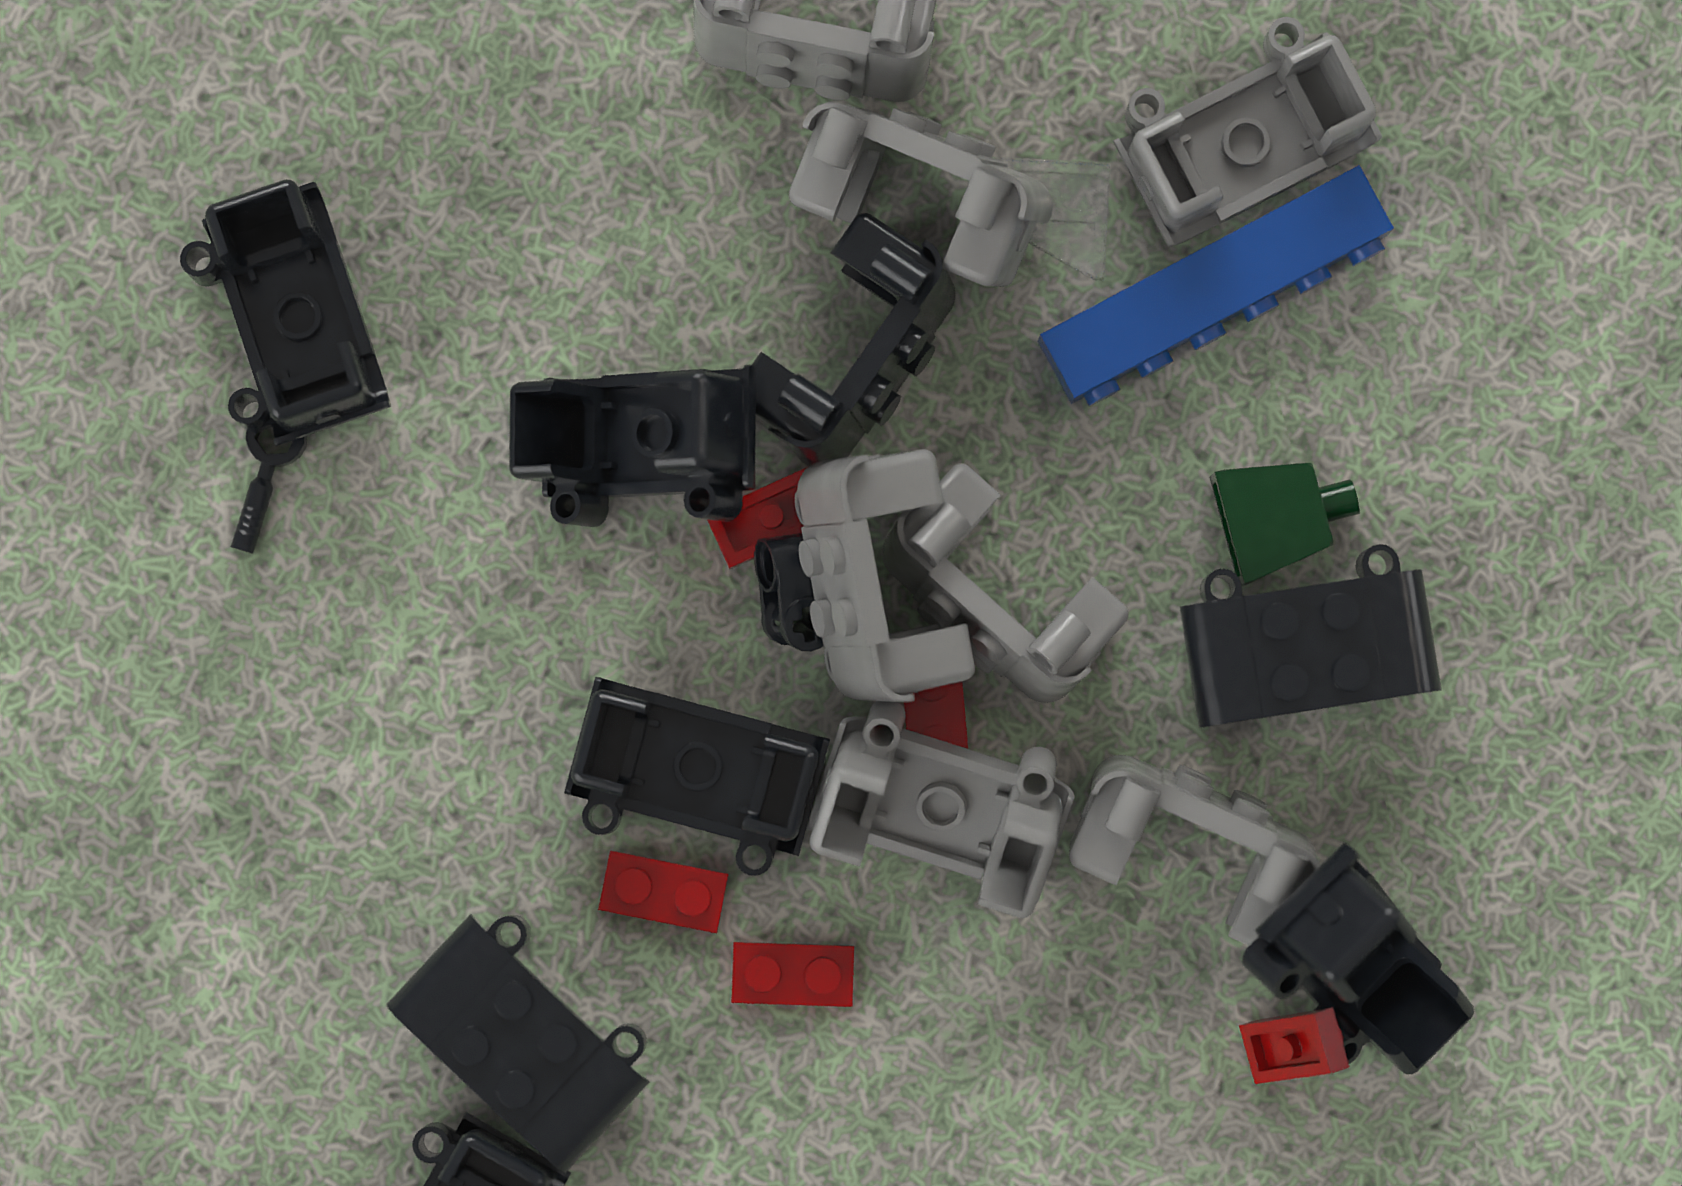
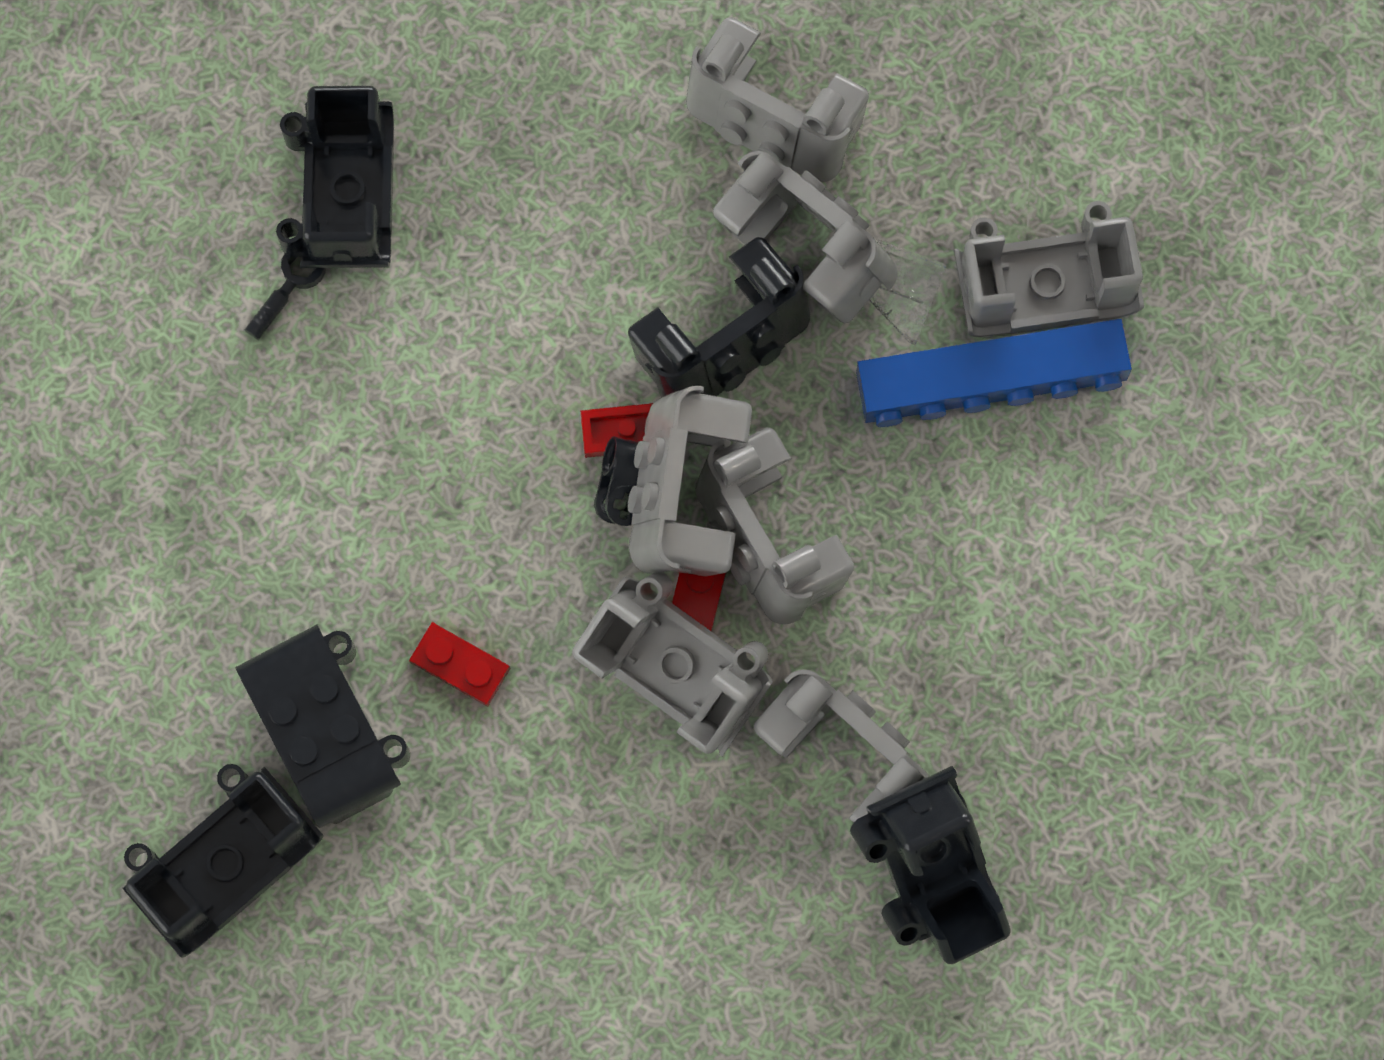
camera: 20 degrees right, 10 degrees down
(637, 439) = (549, 340): black container -> none
(696, 769) = (508, 583): black container -> none
(792, 974) = (530, 752): red plate -> none
(1277, 515) = (985, 543): dark green torso -> none
(1294, 1046) = (871, 916): red plate -> none
(1310, 644) = (976, 631): black container -> none

